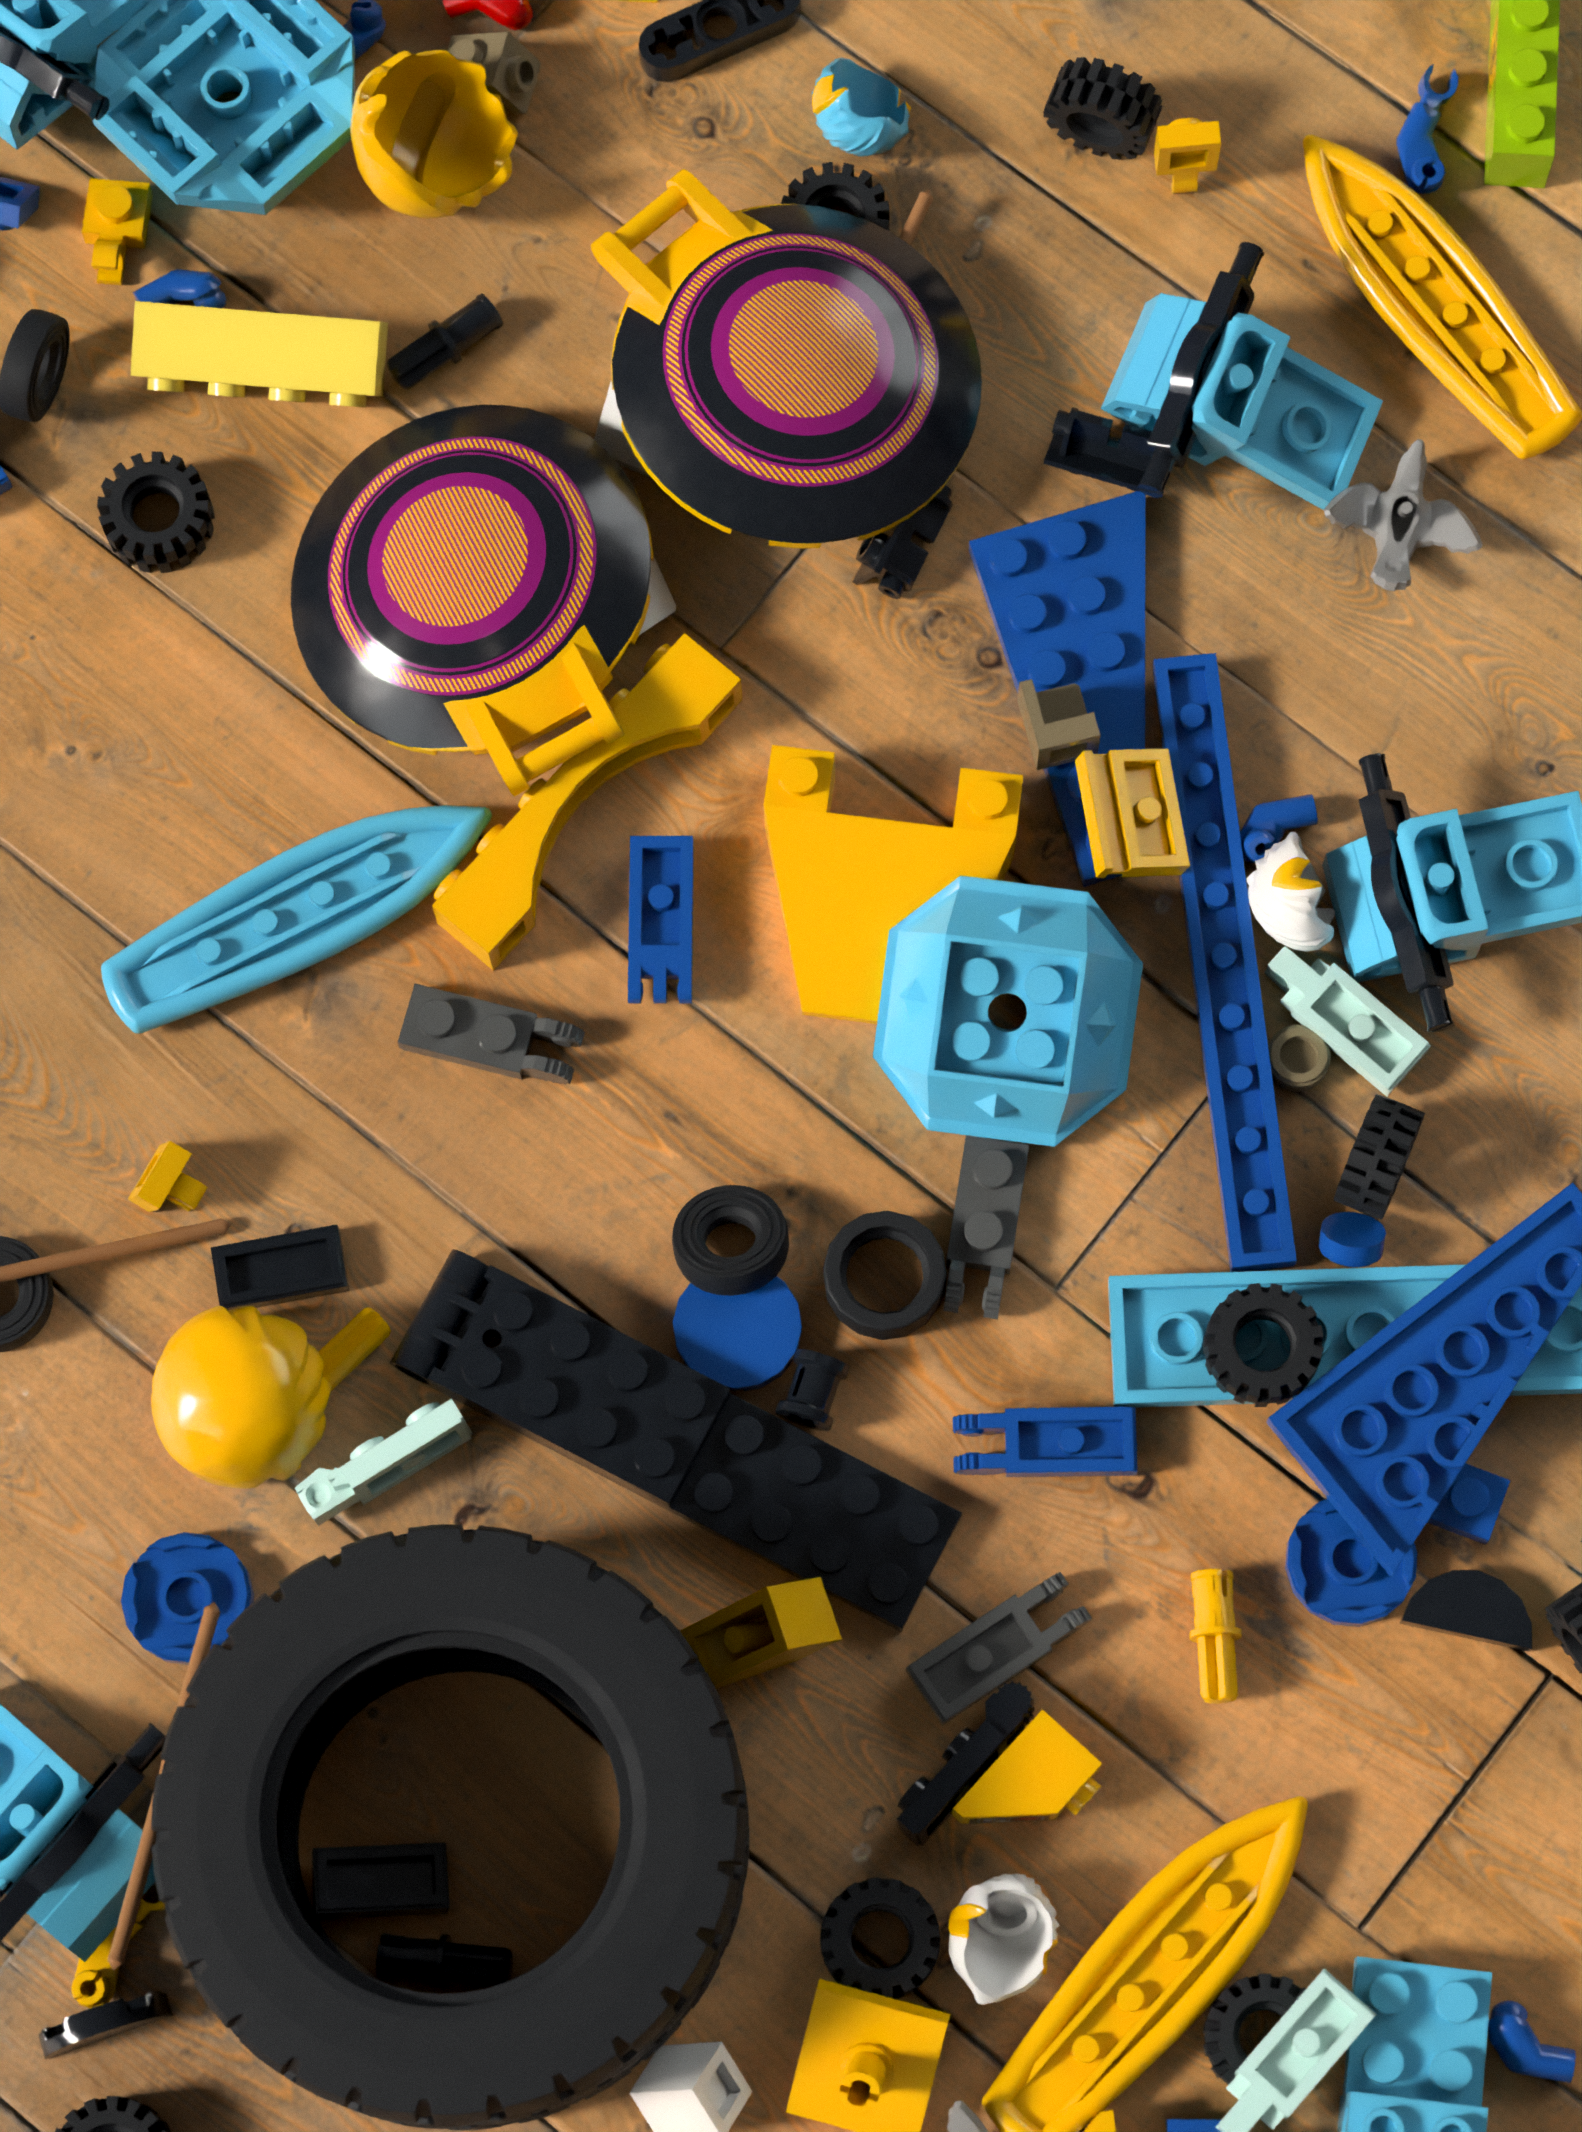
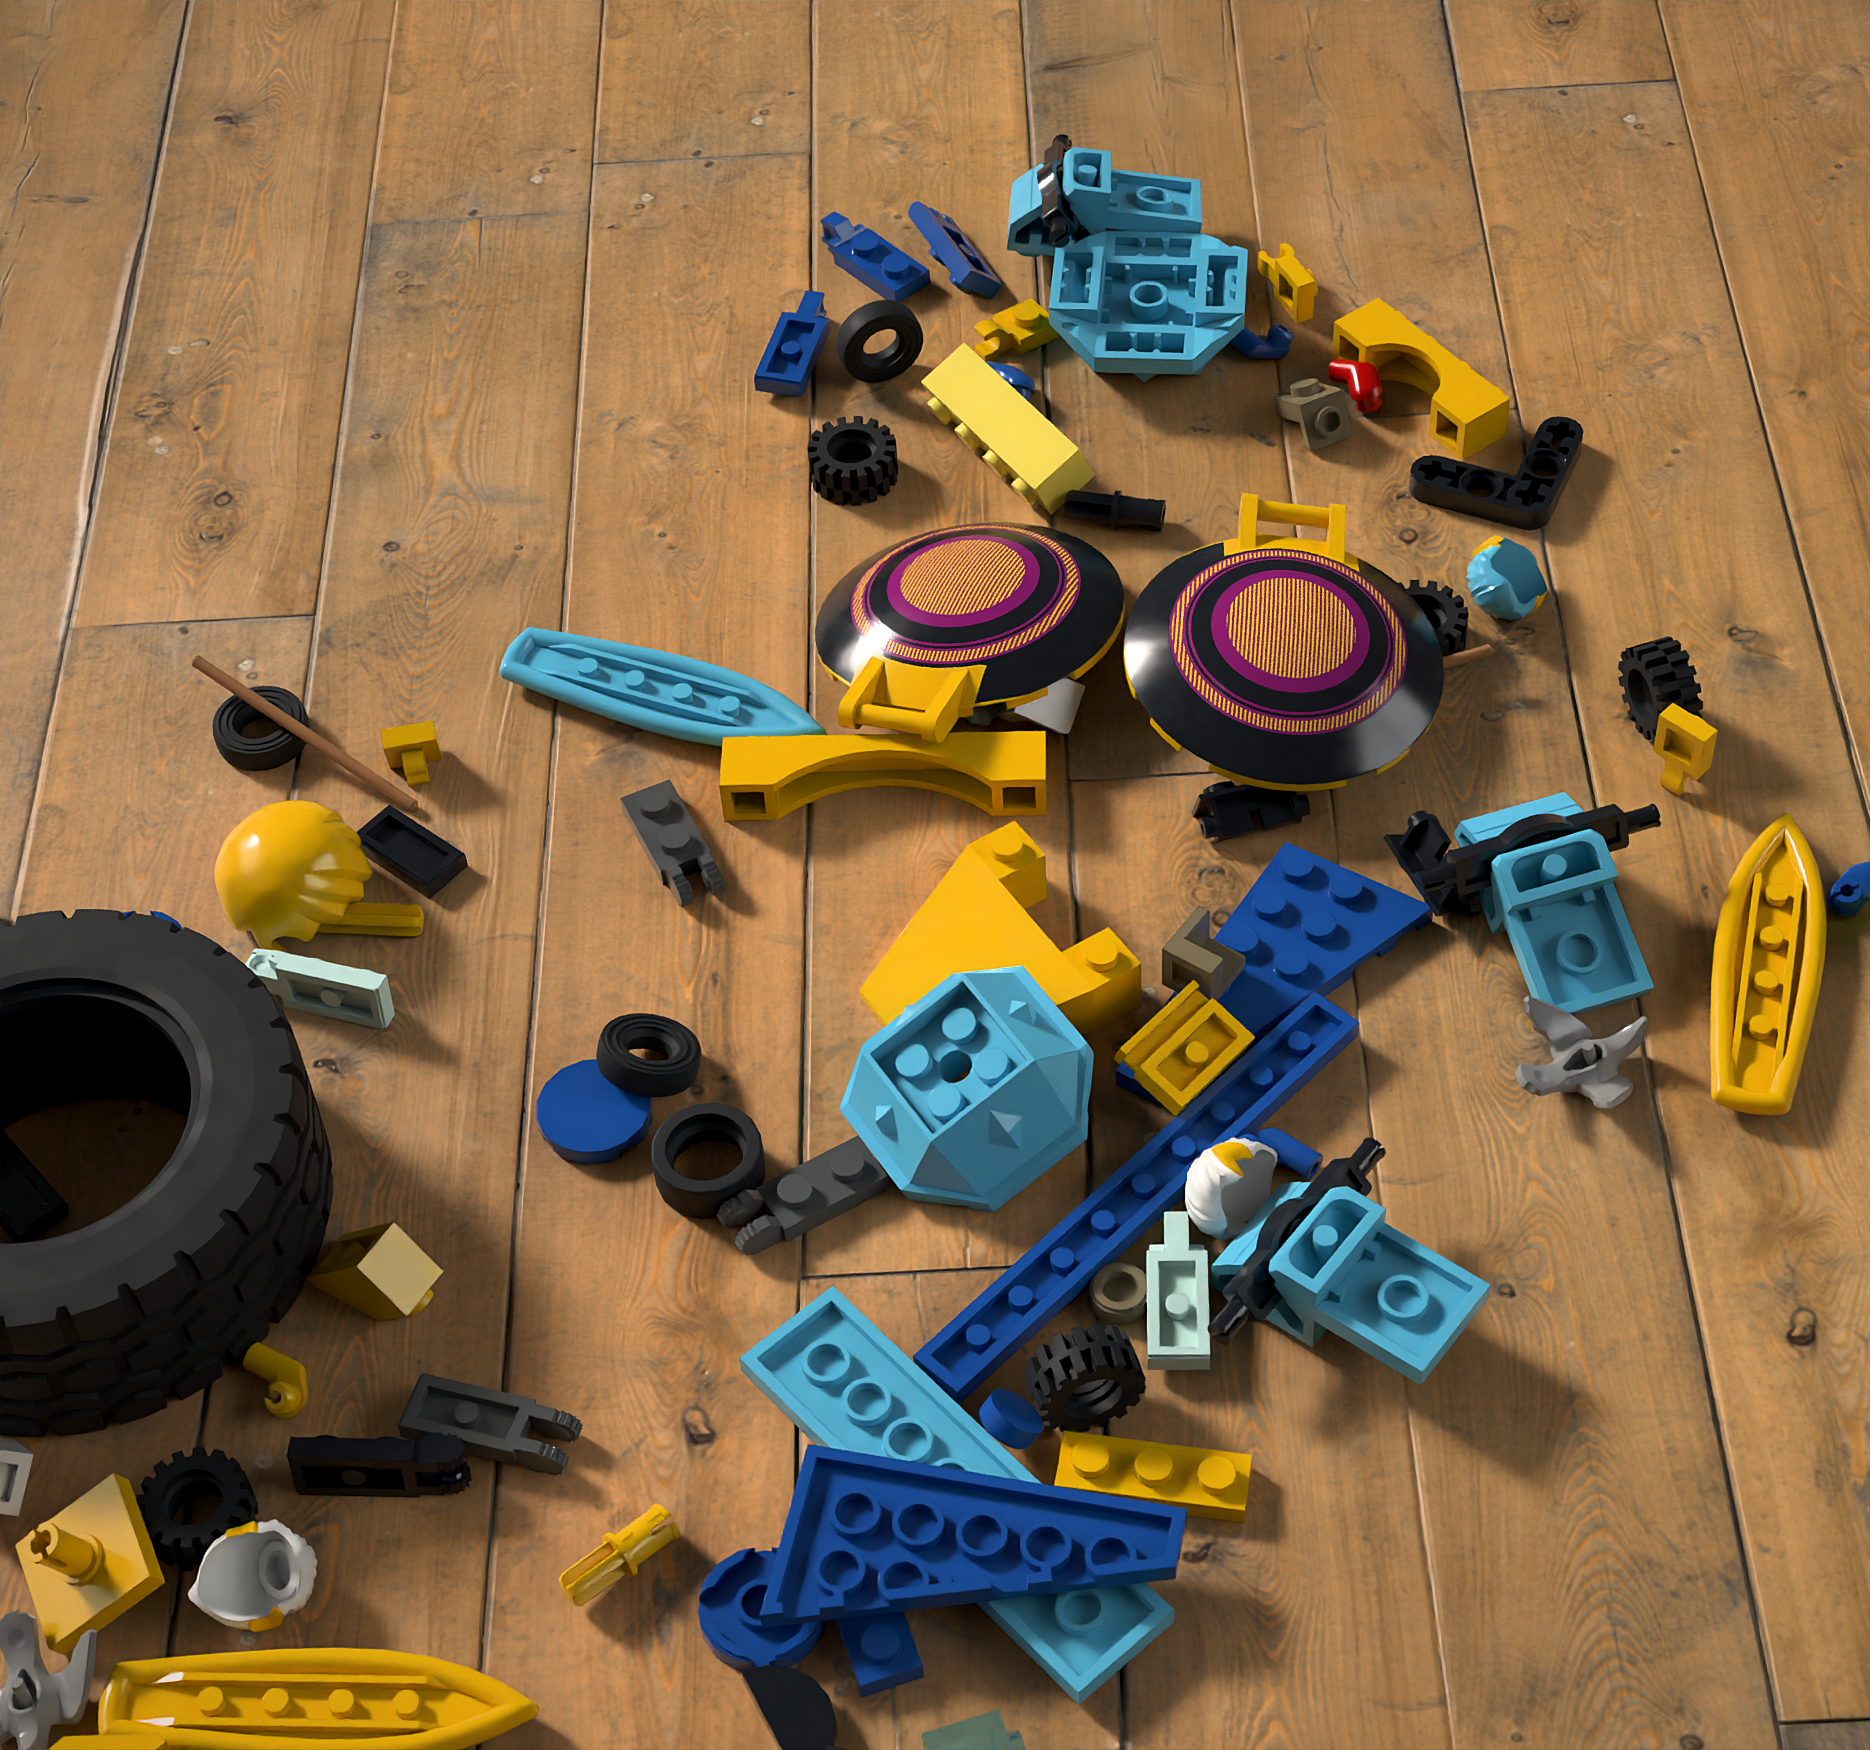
camera: 50 degrees right, 25 degrees down
(430, 134) = (1228, 394): yellow piece -> none
(661, 916) = (843, 868): blue hinge -> none
(675, 1438) = (480, 1143): black hinge -> none
(802, 1780) = (286, 1379): none -> yellow arm
(812, 1390) = (584, 1178): black bush -> none
(1033, 1778) = (401, 1511): yellow slope -> none
(1053, 1442) = (678, 1348): blue hinge -> none
(1263, 1304) = (865, 1373): black tyre -> none
(1486, 1174) = (1194, 1478): none -> yellow plate

